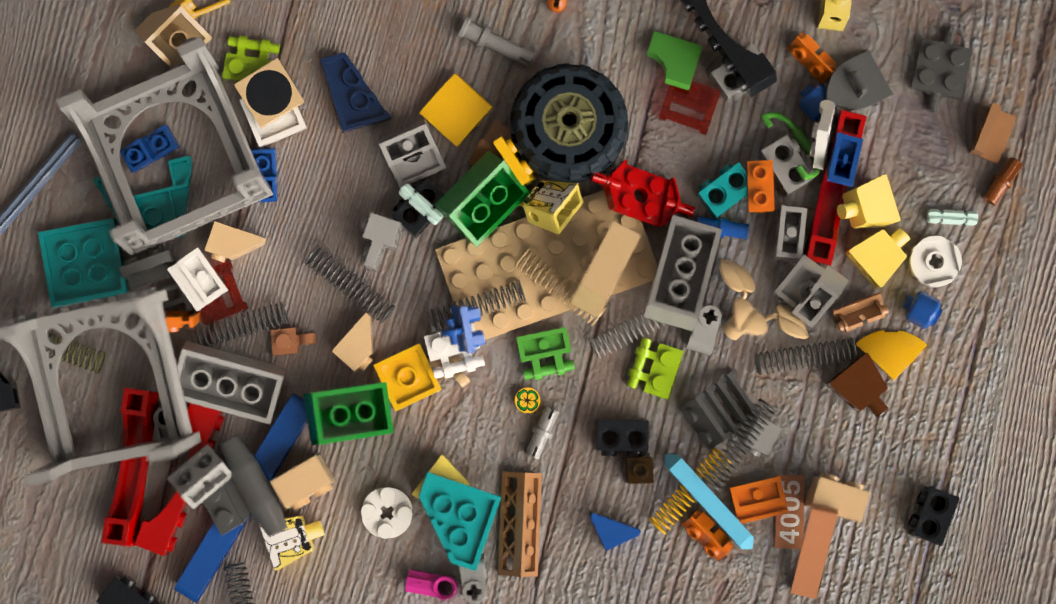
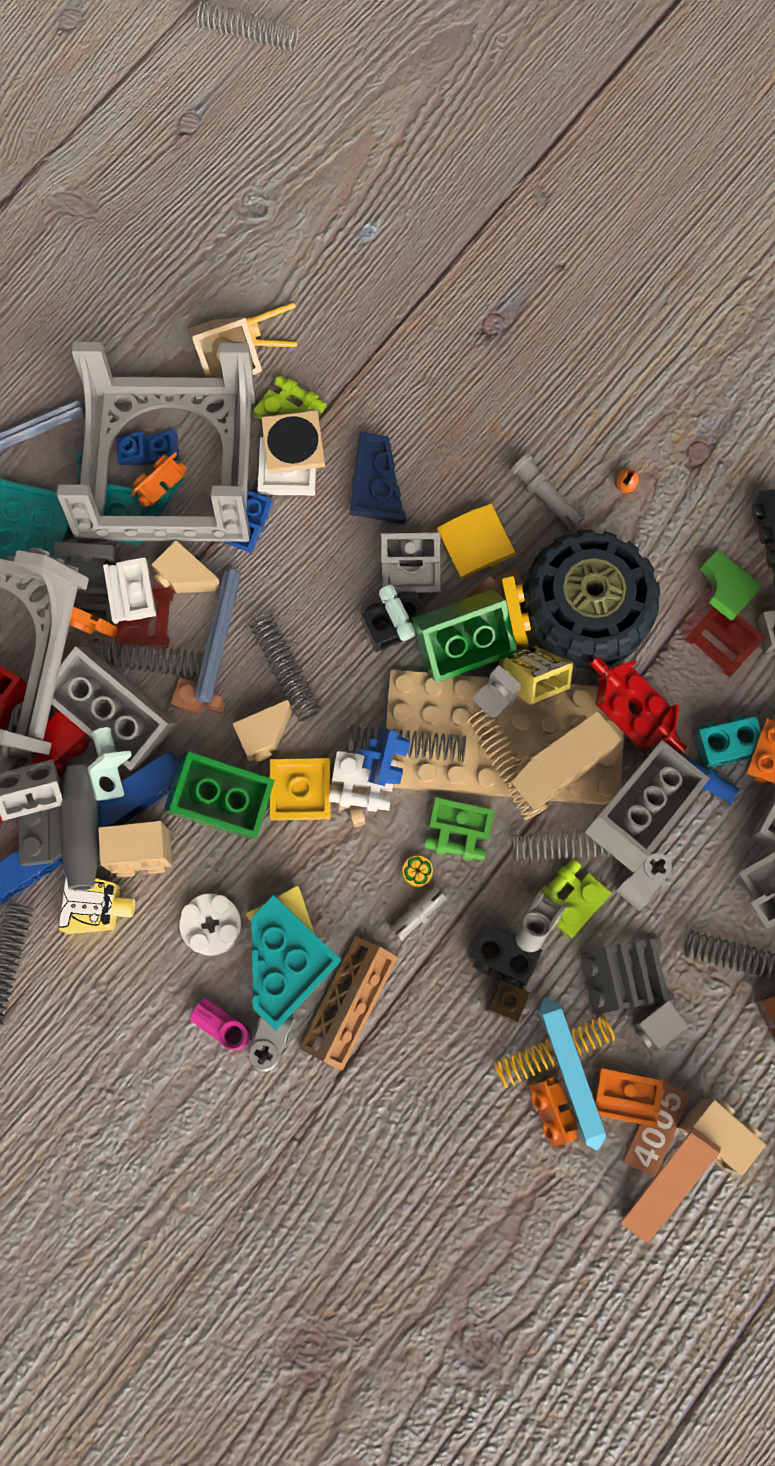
camera: 25 degrees right, 10 degrees down
(170, 184) = (149, 486): none -> orange hinge
(250, 429) = (106, 764): none -> light aqua bracket
(284, 283) = (217, 635): none -> sand blue axle
(382, 235) = (341, 629): light grey brick -> none
(528, 238) = (498, 693): none -> light grey slope
(612, 532) = (447, 1058): blue slope -> none
(637, 396) = (542, 919): none -> light grey piece
(738, 438) = (583, 1050): dark grey piece -> none
(745, 317) = (703, 880): tan plant -> none

